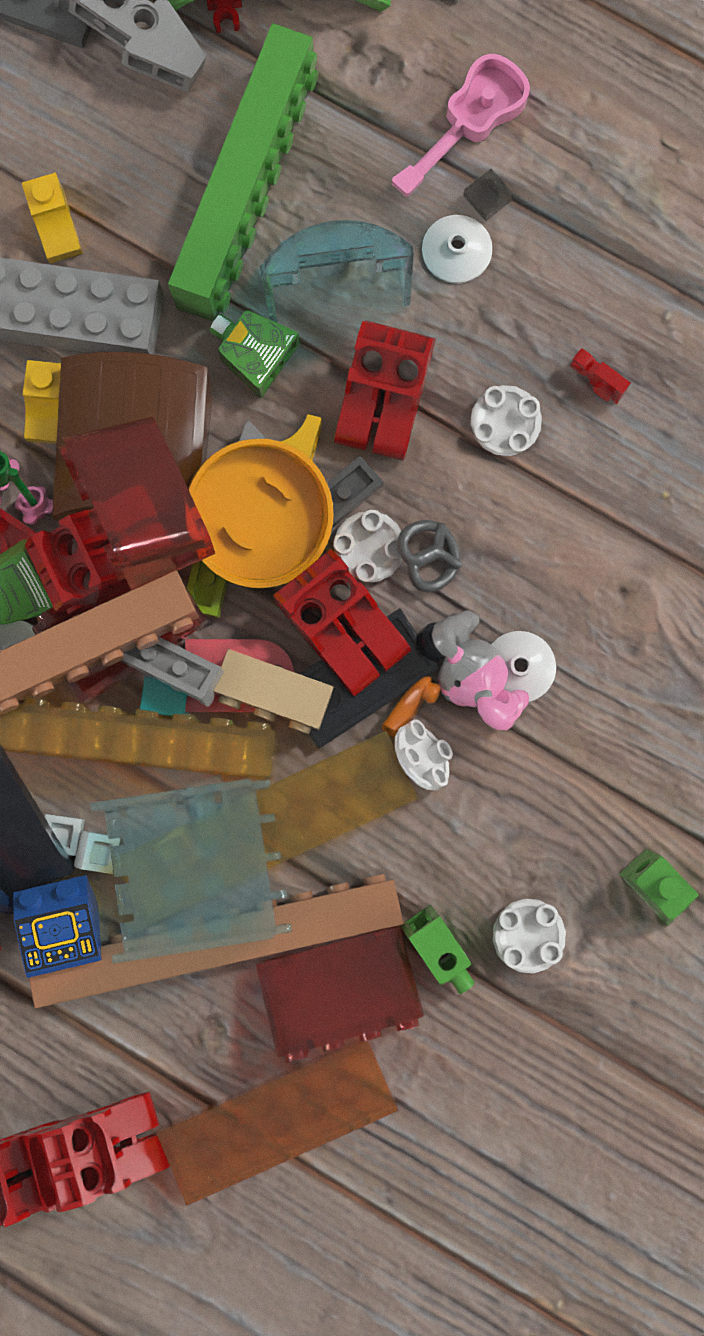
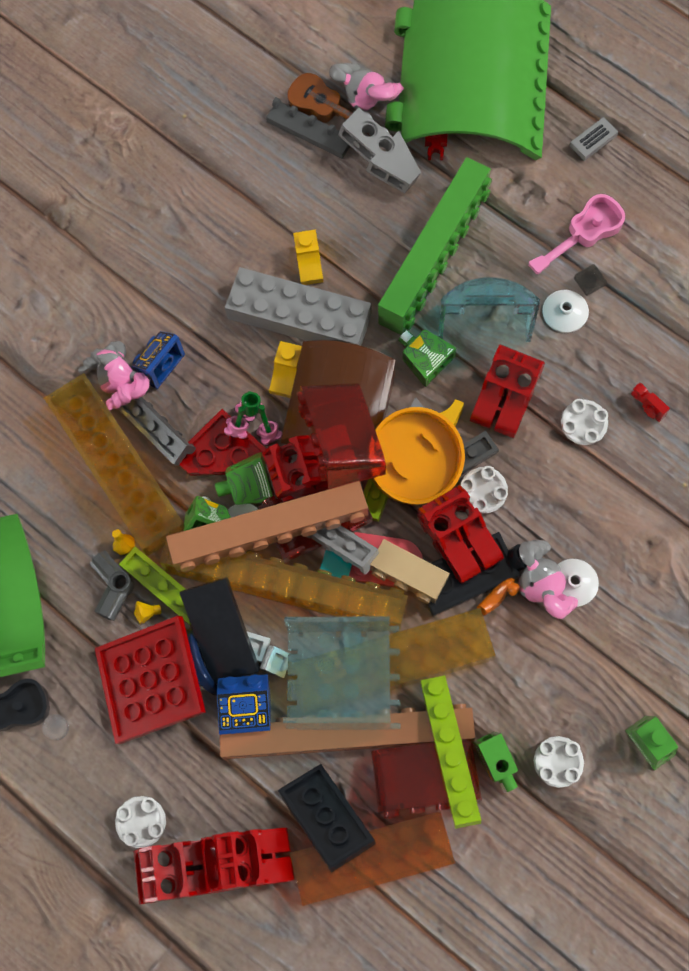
camera: 10 degrees right, 10 degrees down
(203, 1073) = (326, 818): none -> black tile
(369, 954) = (450, 752): none -> lime plate
(423, 755) = (502, 629): white dish -> none
(434, 552) = (523, 500): dark grey piece -> none

